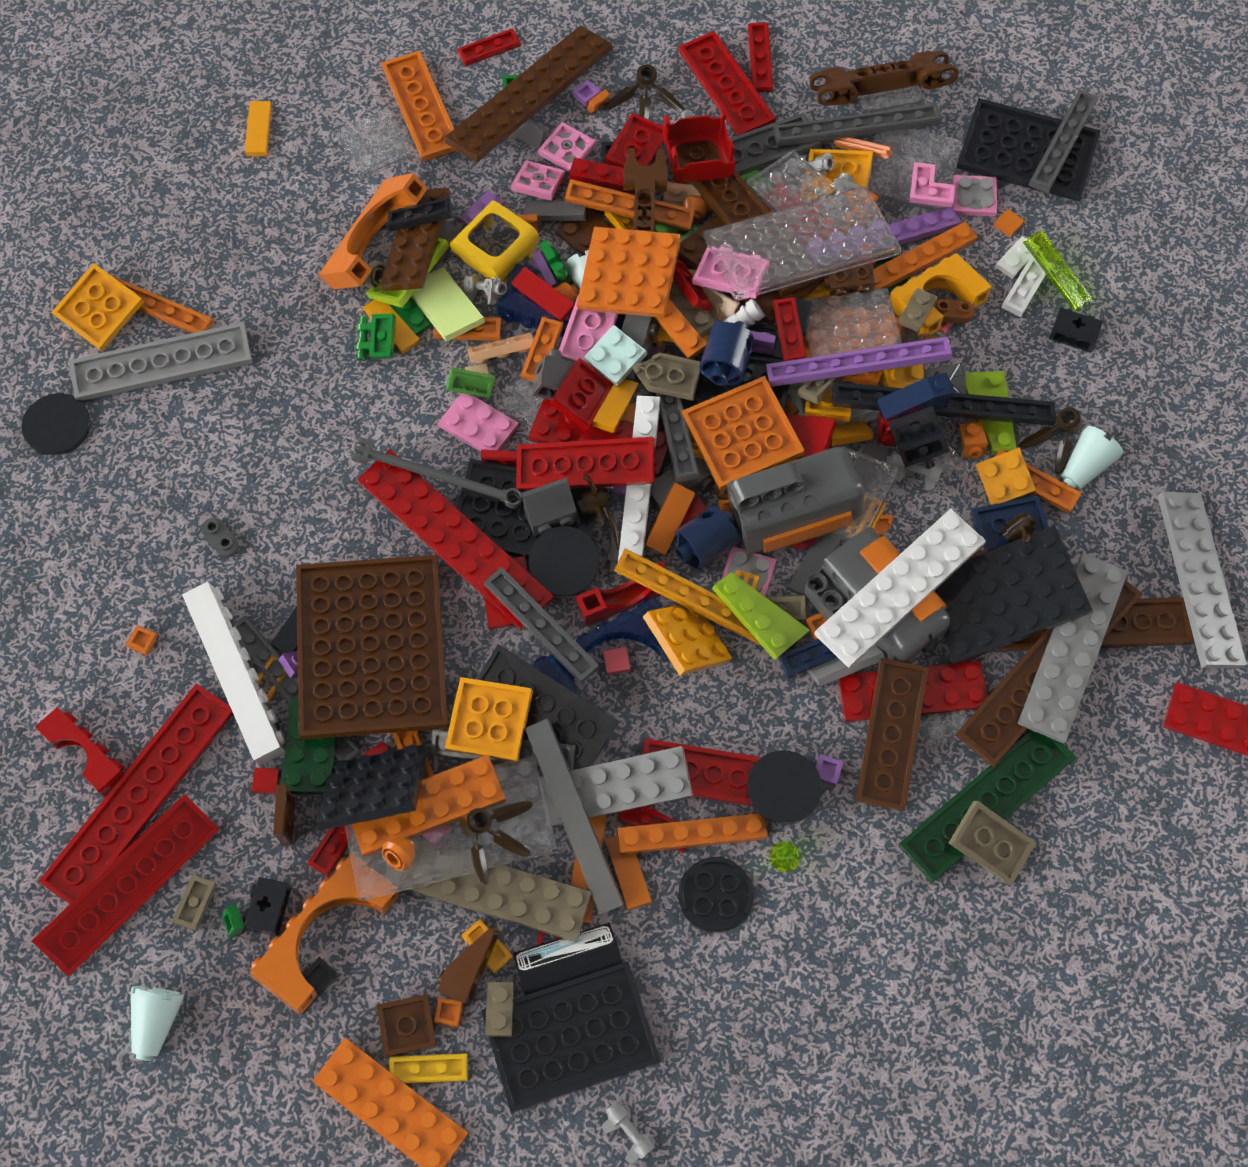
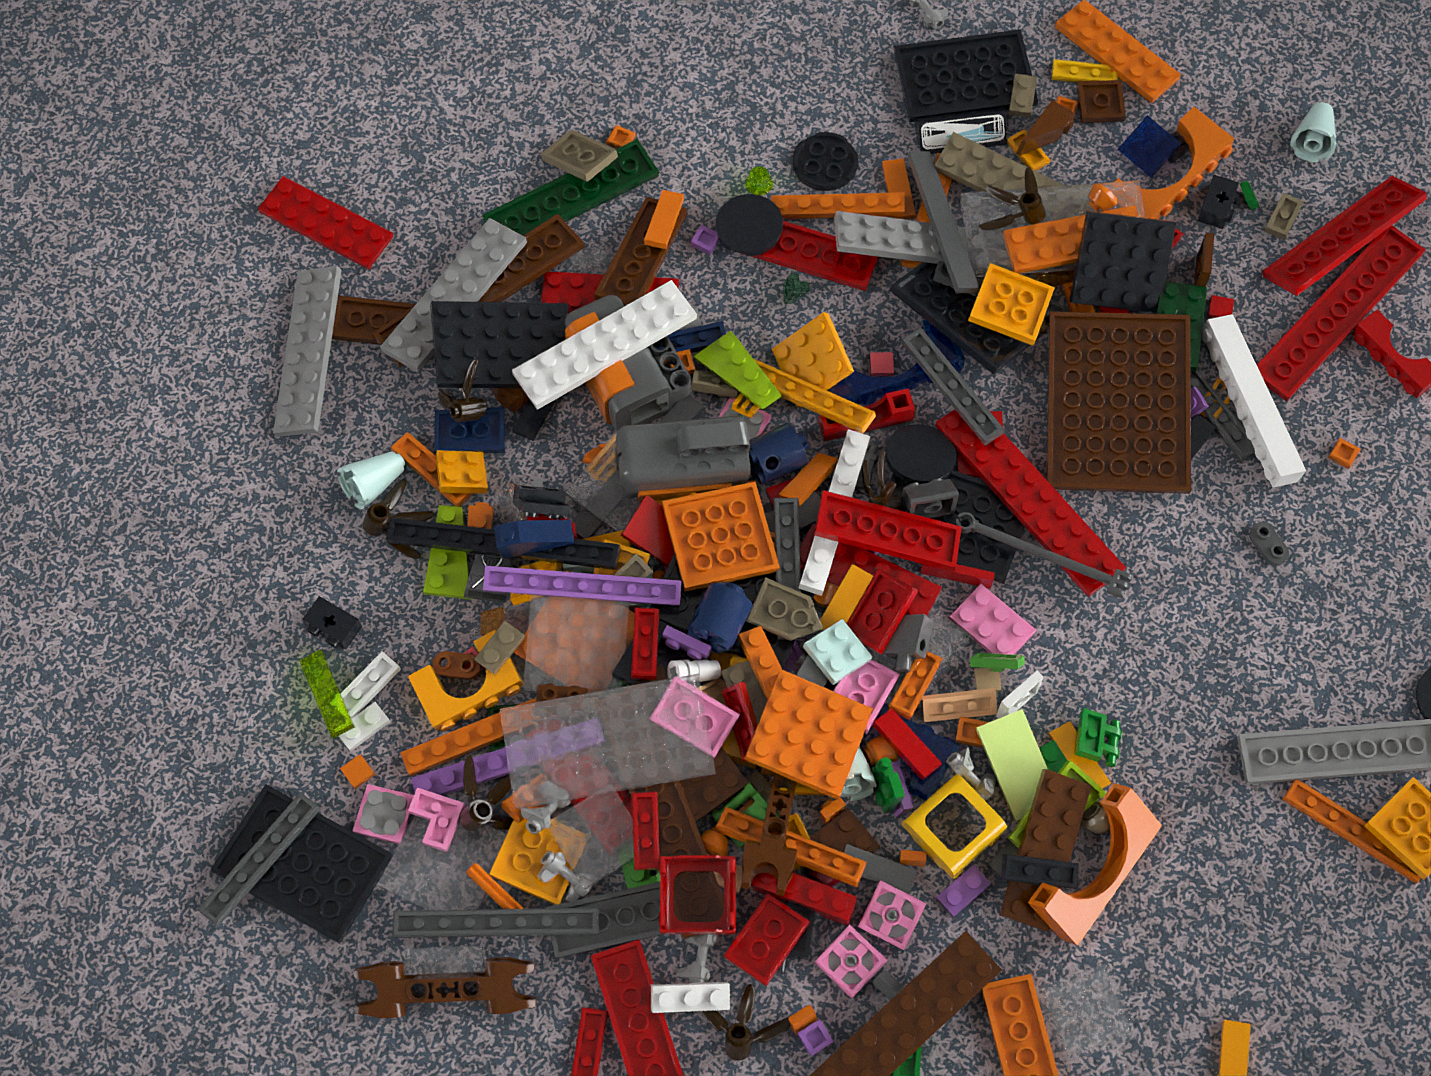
camera: 170 degrees left, 0 degrees up
(347, 964) = (1149, 146): none -> clear blue plate
(447, 352) = (1020, 695): none -> white tile
(690, 99) = (690, 997): none -> white plate
(721, 725) = (794, 288): none -> clear green tile
(752, 188) = (645, 831): none -> red tile
(877, 775) = (664, 219): none -> orange tile
(898, 190) = (480, 811): none -> dark brown plant
(953, 886) = (620, 137): none -> orange tile

